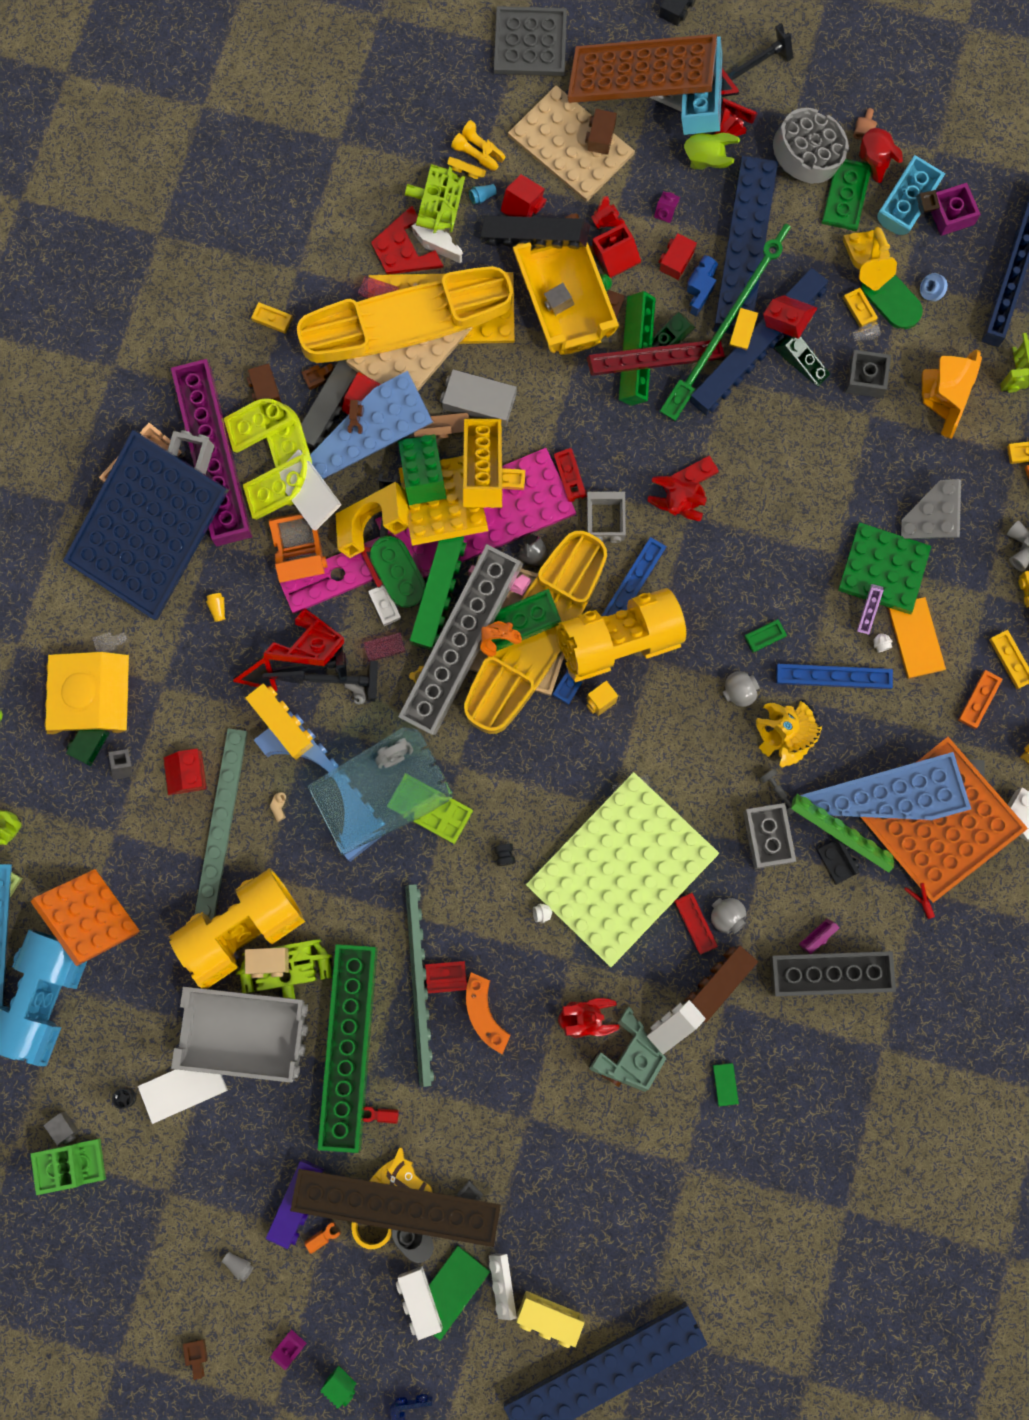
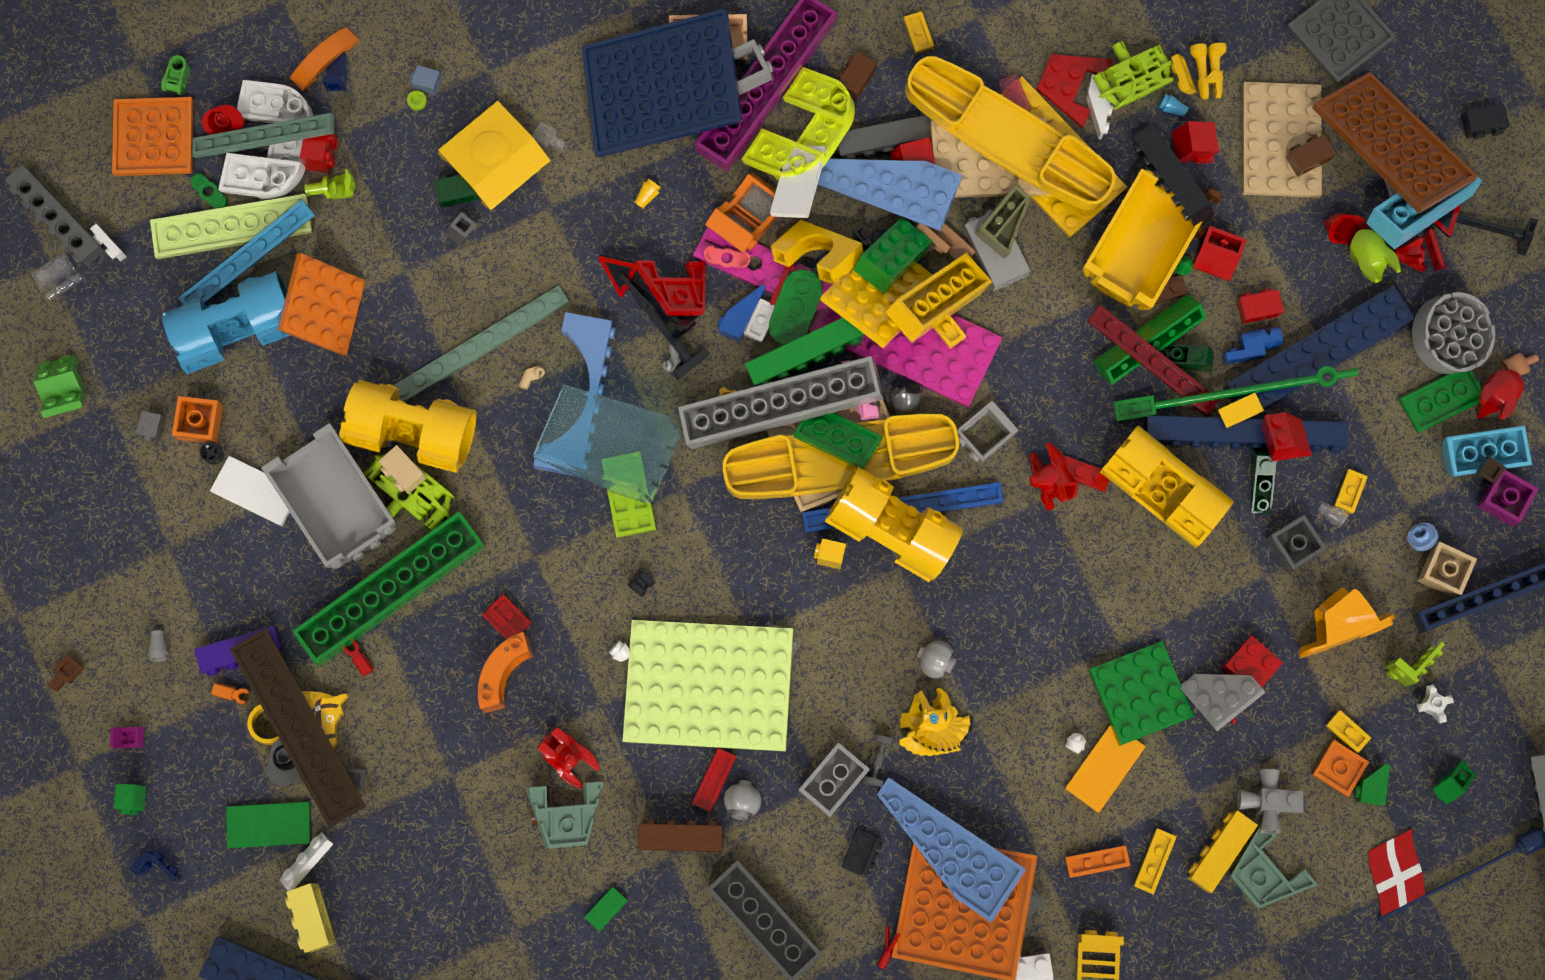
camera: 45 degrees right, 0 degrees up
(68, 1166) = (126, 455): bright green bracket -> none
(89, 1087) = (197, 420): none -> orange brick
(185, 772) = (497, 282): red slope -> none
(279, 721) = (595, 319): yellow brick -> none
(315, 376) = (901, 107): reddish brown plate -> none
(327, 581) = (714, 255): none -> coral piece
(356, 412) = (891, 165): reddish brown plate -> none
(368, 618) = (738, 317): none -> blue slope
(384, 647) = (727, 349): clear pink plate -> none
(393, 754) = (644, 428): light grey plate -> none
(419, 1303) = (241, 807): white brick -> none
(420, 993) = (477, 608): sand green plate -> none
(466, 374) = (1004, 221): none -> olive wedge
(502, 631) = (813, 430): orange helmet -> none
(558, 299) = (1133, 242): flat silver brick -> none
(570, 474) = (996, 375): red plate -> none
(606, 214) = (1243, 220): red rock -> none
(666, 206) = (1296, 261): magenta bracket -> none
(671, 154) = (1343, 227): none -> red piece
(675, 1026) = (616, 828): white brick -> none
(756, 424) = (1167, 487): none -> yellow cylinder
(765, 636) = (999, 643): green tile -> none
(819, 936) = (787, 887): magenta plate -> none
(834, 676) = (1013, 726): blue plate -> none
(843, 833) = (886, 837): bright green plate -> none
(870, 609) = (1093, 708): lavender piece -> none
(871, 256) = (1399, 463): yellow plate -> none
(895, 303) = (1383, 510): green tile -> none
(925, 472) = (1252, 660): none -> red brick
(971, 290) = (1447, 570): none -> tan brick

